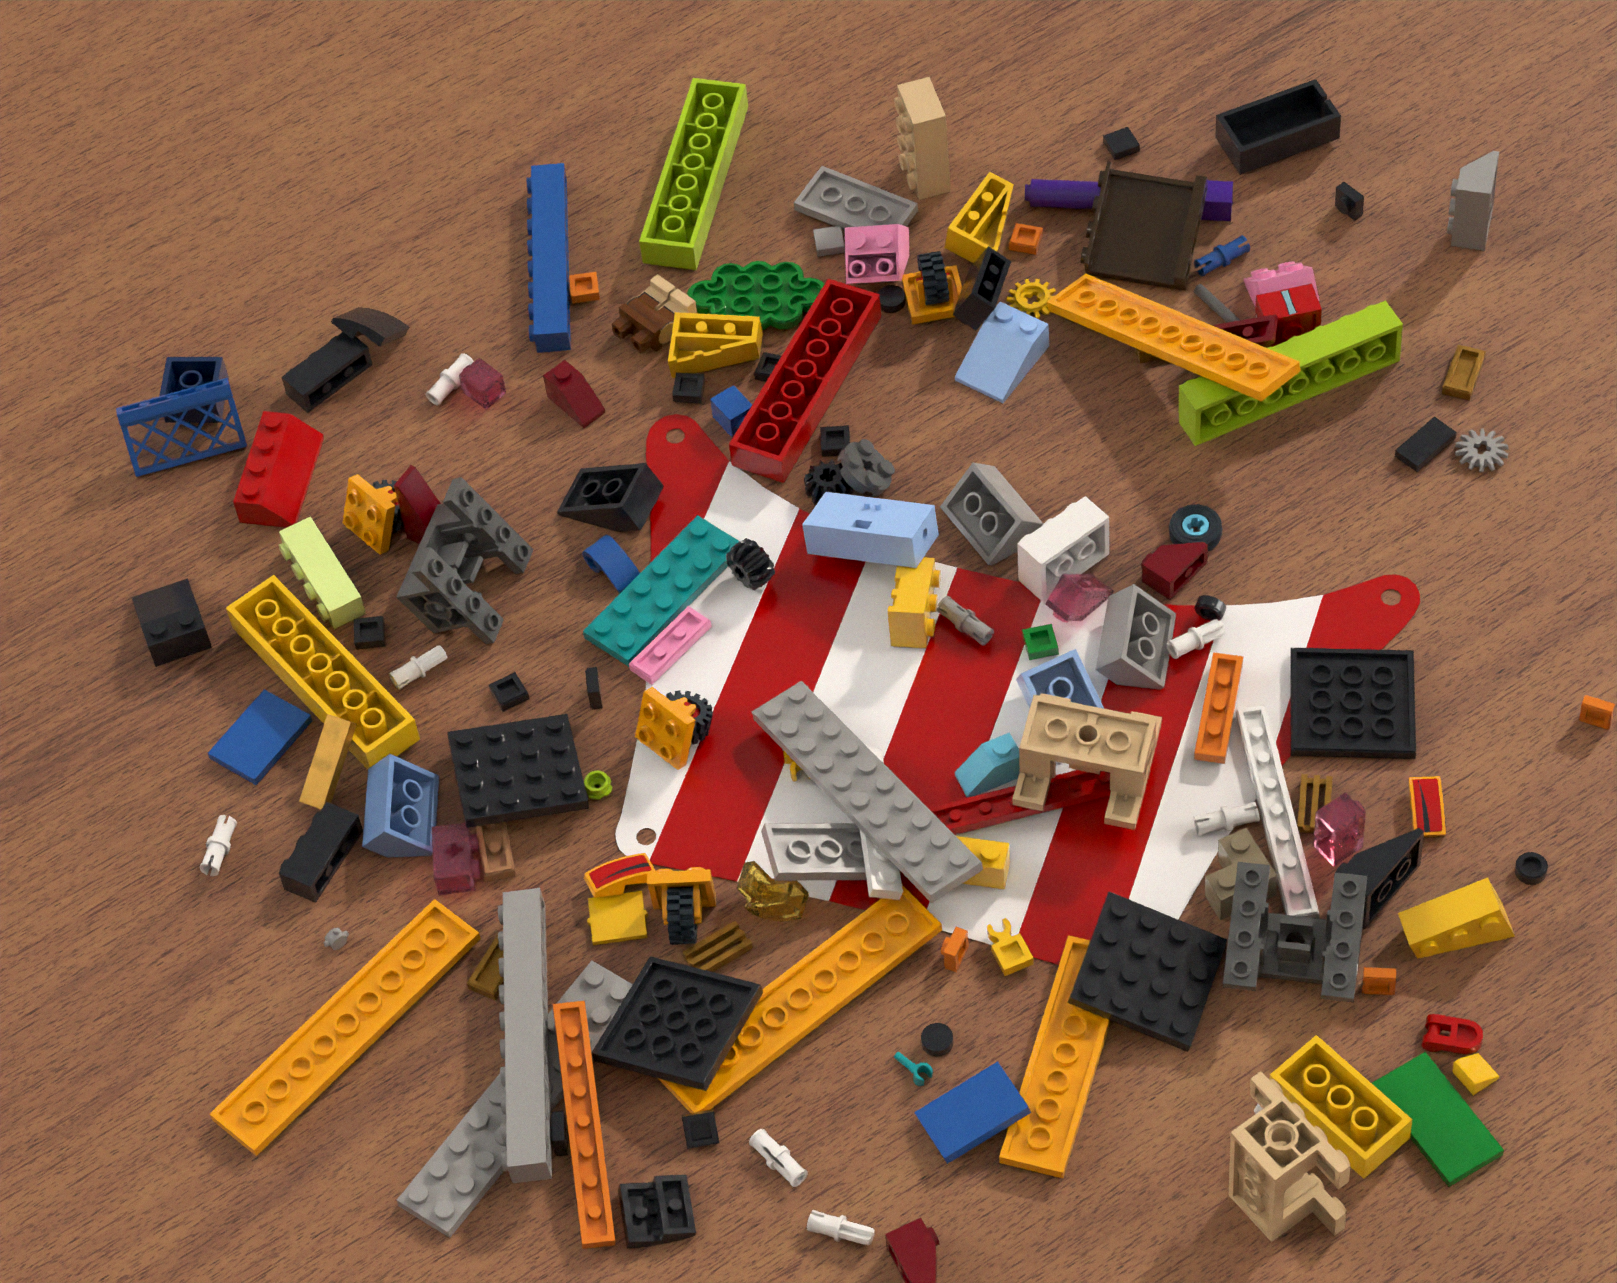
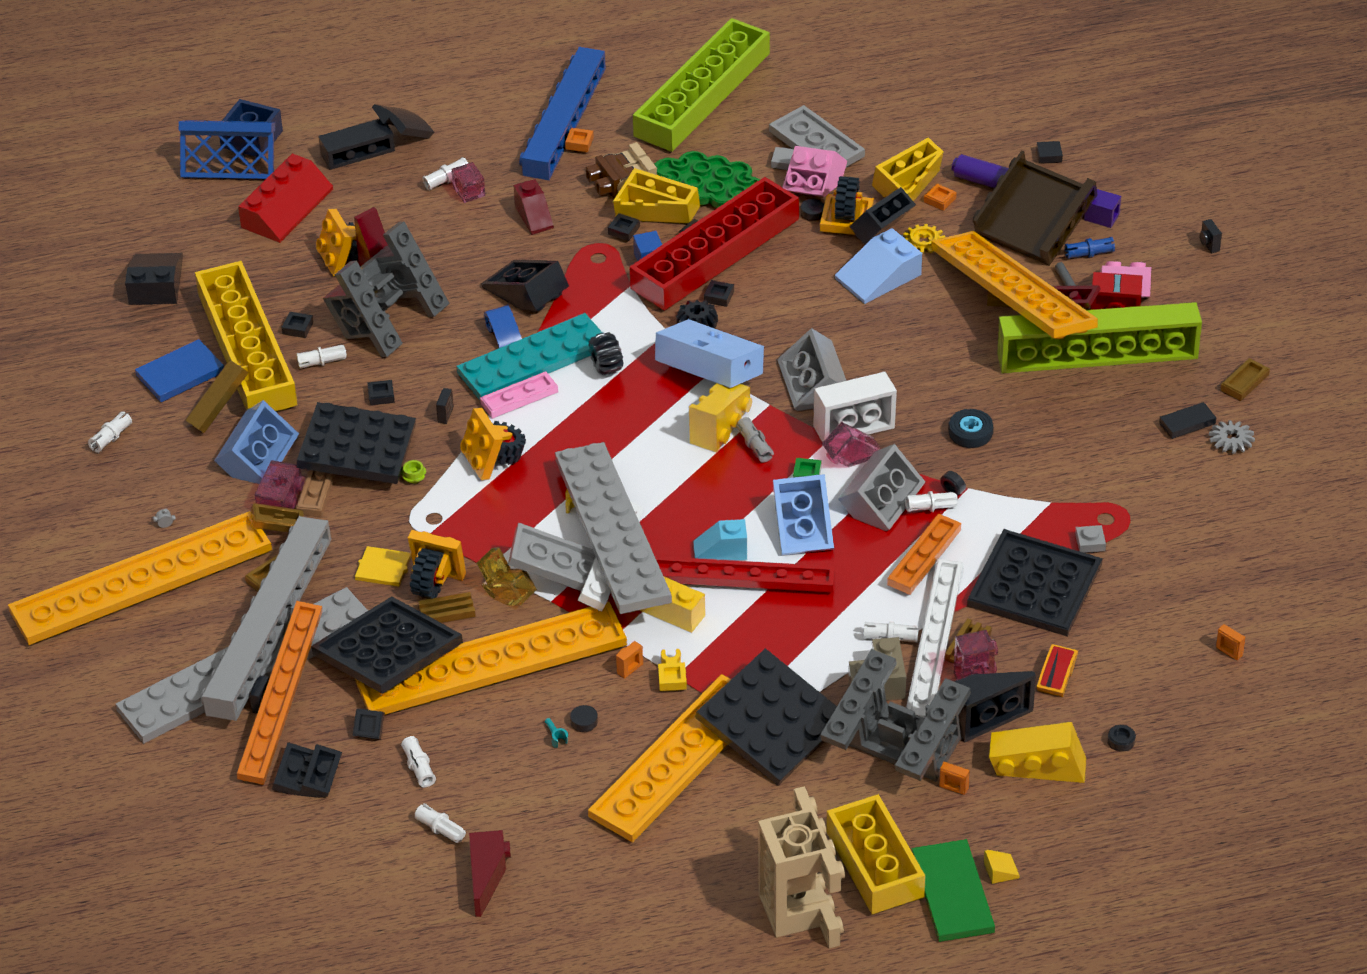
camera: 15 degrees right, 10 degrees down
(320, 852) = (182, 457): black brick -> none
(321, 572) = (281, 273): yellowish green brick -> none
(474, 901) = (274, 517): none -> pearl gold tile
(612, 876) = (389, 535): slope -> none
(877, 473) = (739, 318): dark grey plate -> none
(922, 138) = (884, 99): tan brick -> none
(972, 1112) = (583, 773): blue tile -> none
(1090, 742) = (802, 537): tan piece -> none
(1173, 566) = (939, 447): dark red slope -> none
(1277, 126) = (1177, 169): black piece -> none
(1388, 629) = (1090, 539): none -> light grey plate
(1464, 1037) = (1003, 837): red plate -> none
(1473, 202) = (1307, 257): light grey slope -> none

